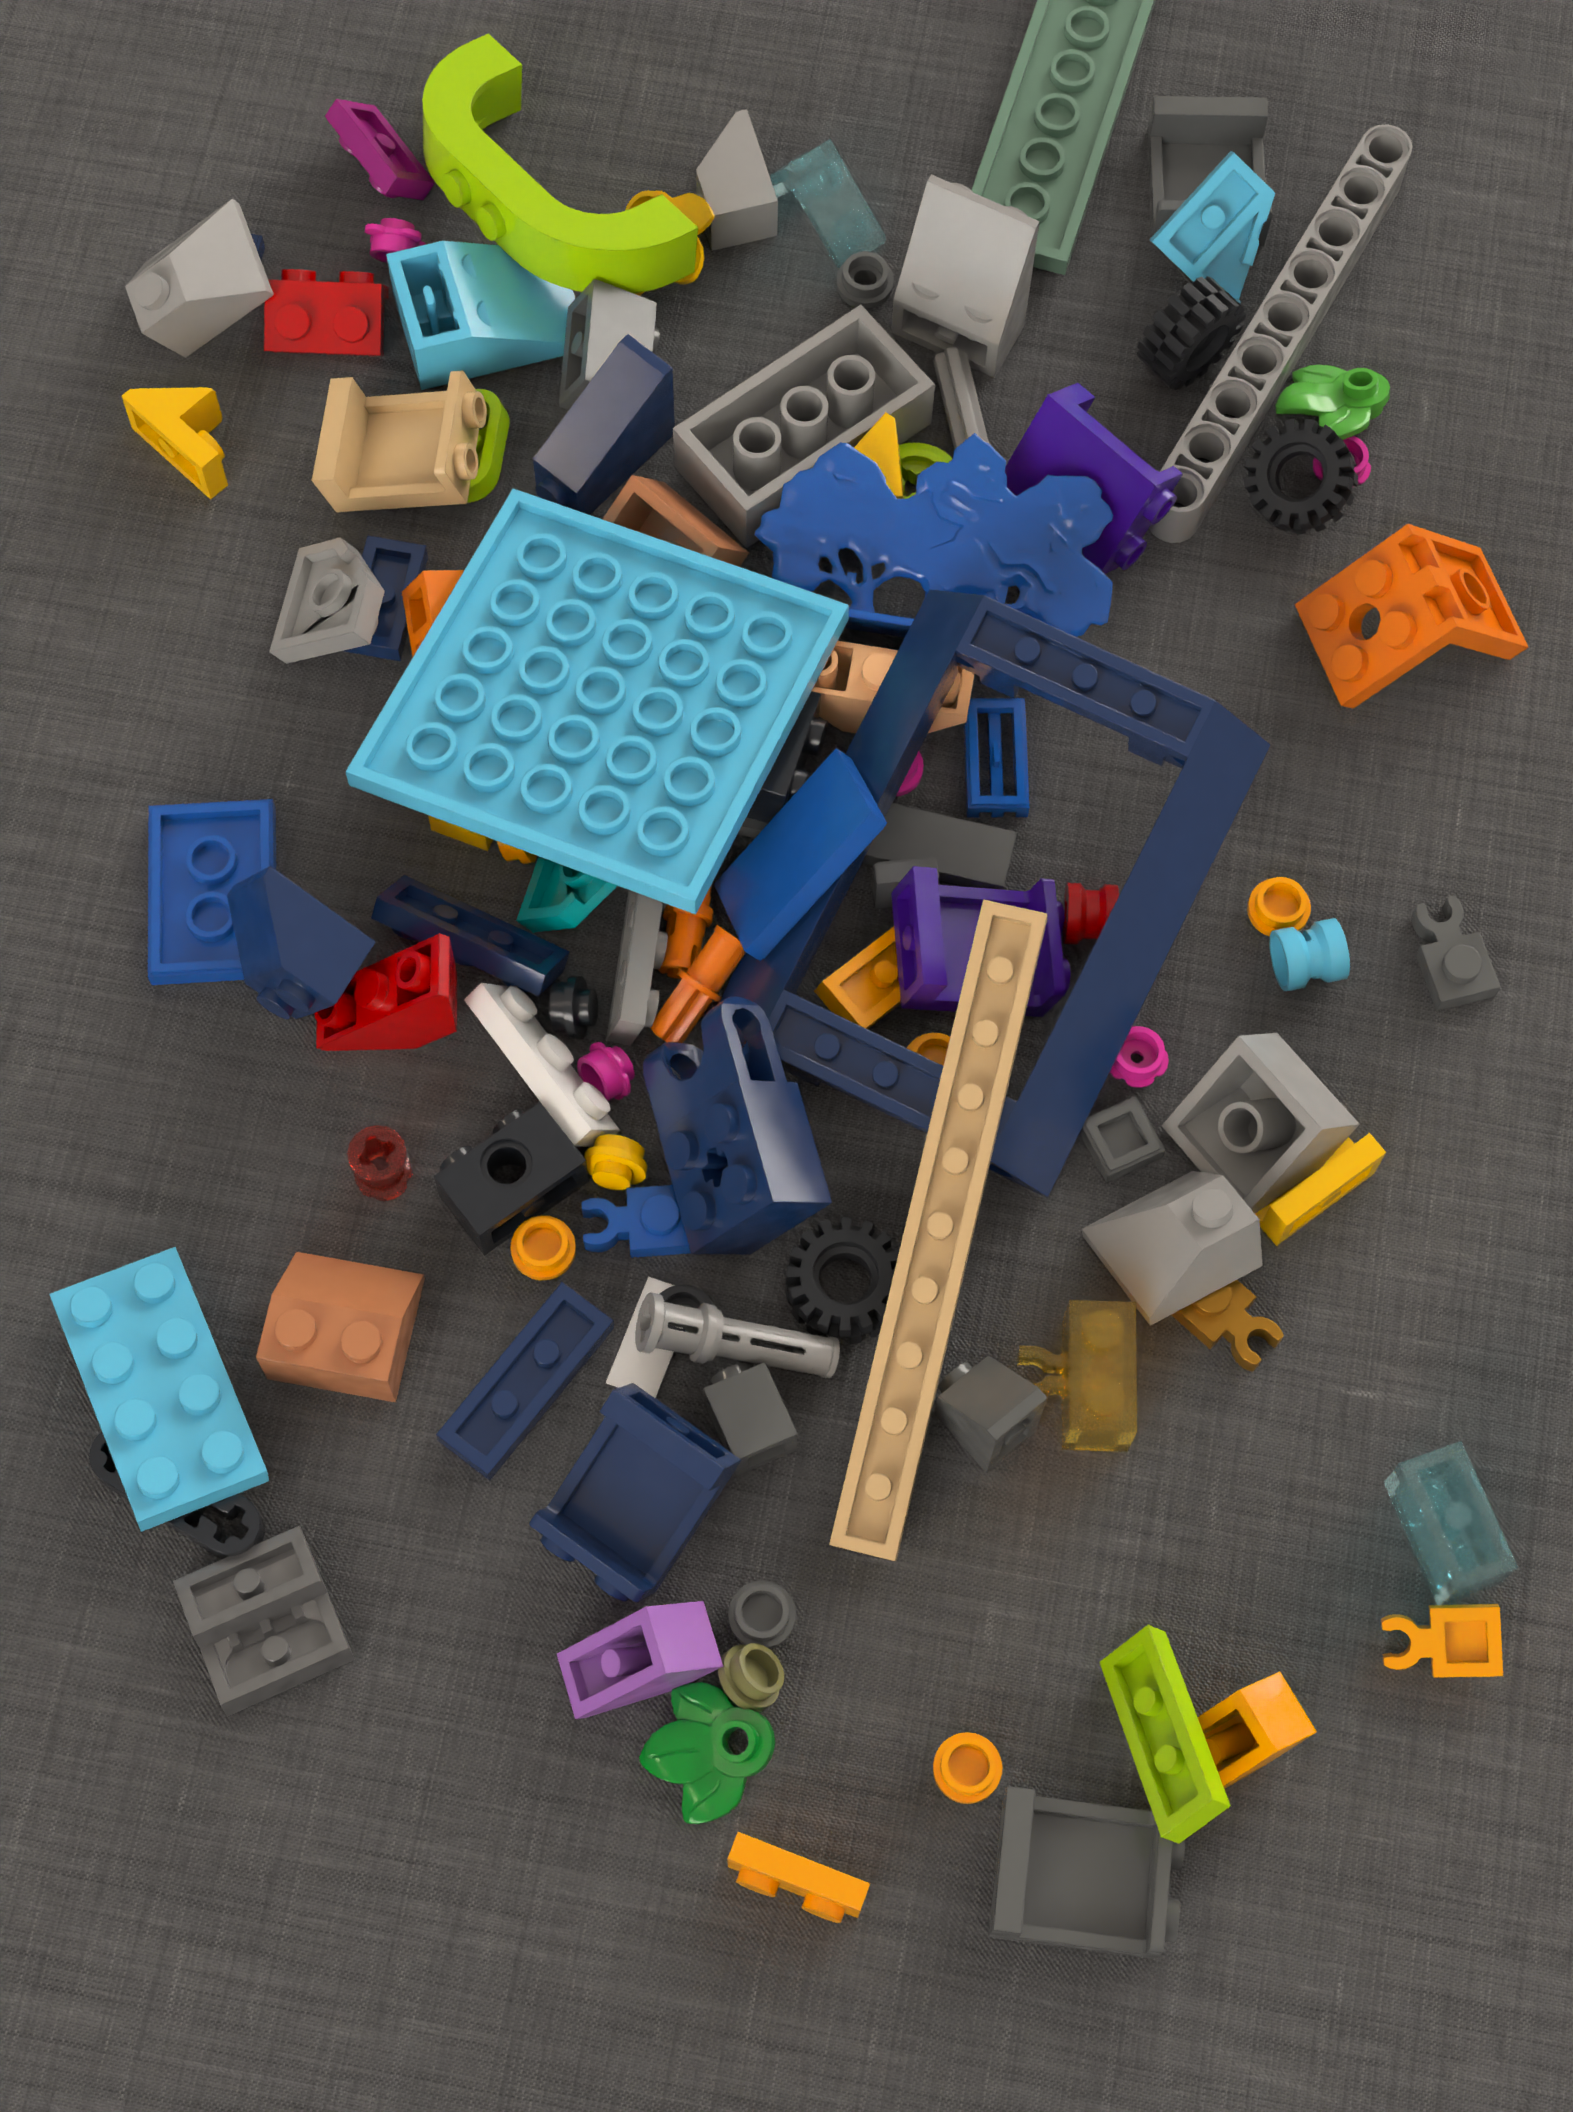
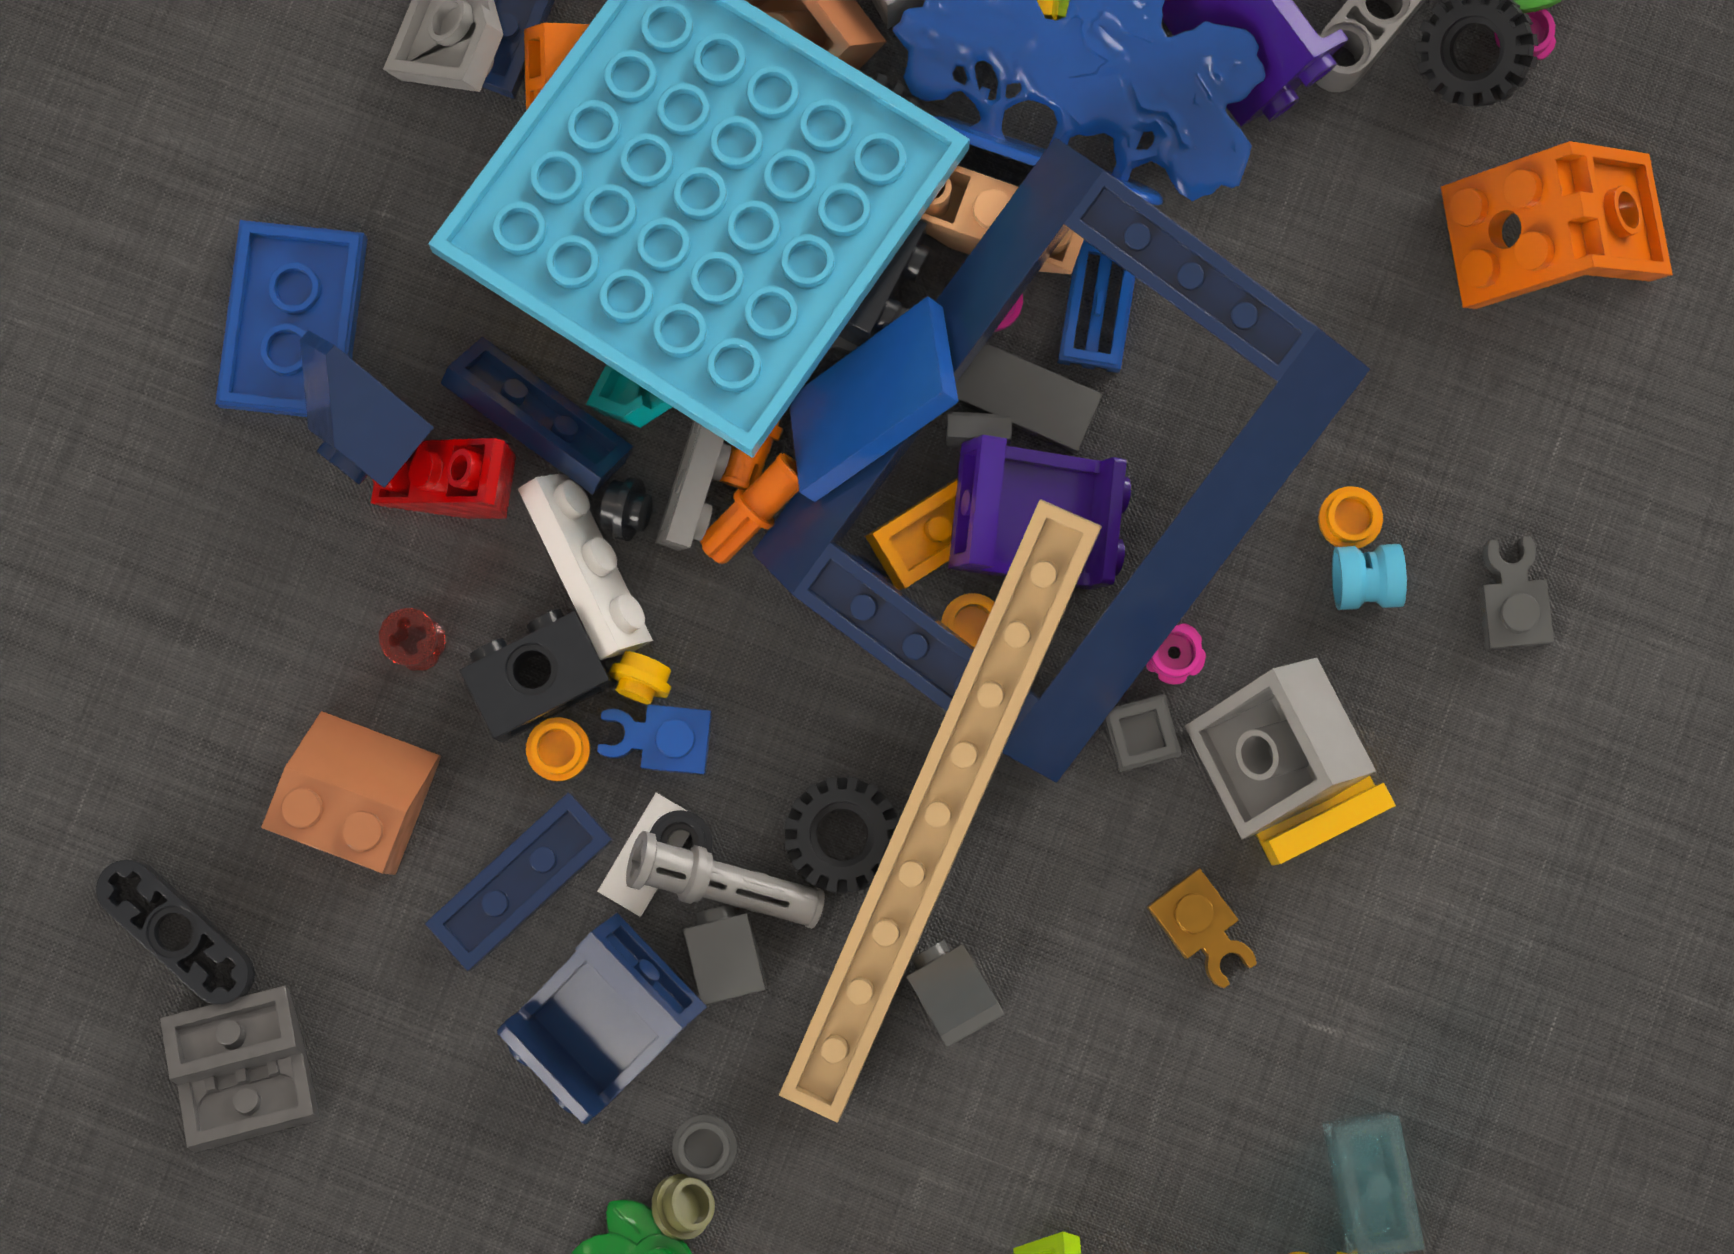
camera: 15 degrees right, 15 degrees up
(159, 1389) = (169, 830): medium azure plate -> none
(607, 1070) = (648, 580): dark pink plate -> none
(639, 1658) = (582, 1173): medium lavender slope -> none
(734, 1134) = (756, 676): dark blue brick -> none
(1086, 911) = (1157, 495): red wheel -> none
(1096, 1376) = (1065, 975): clear yellow brick -> none
(1178, 1243) = (1169, 856): light grey slope -> none

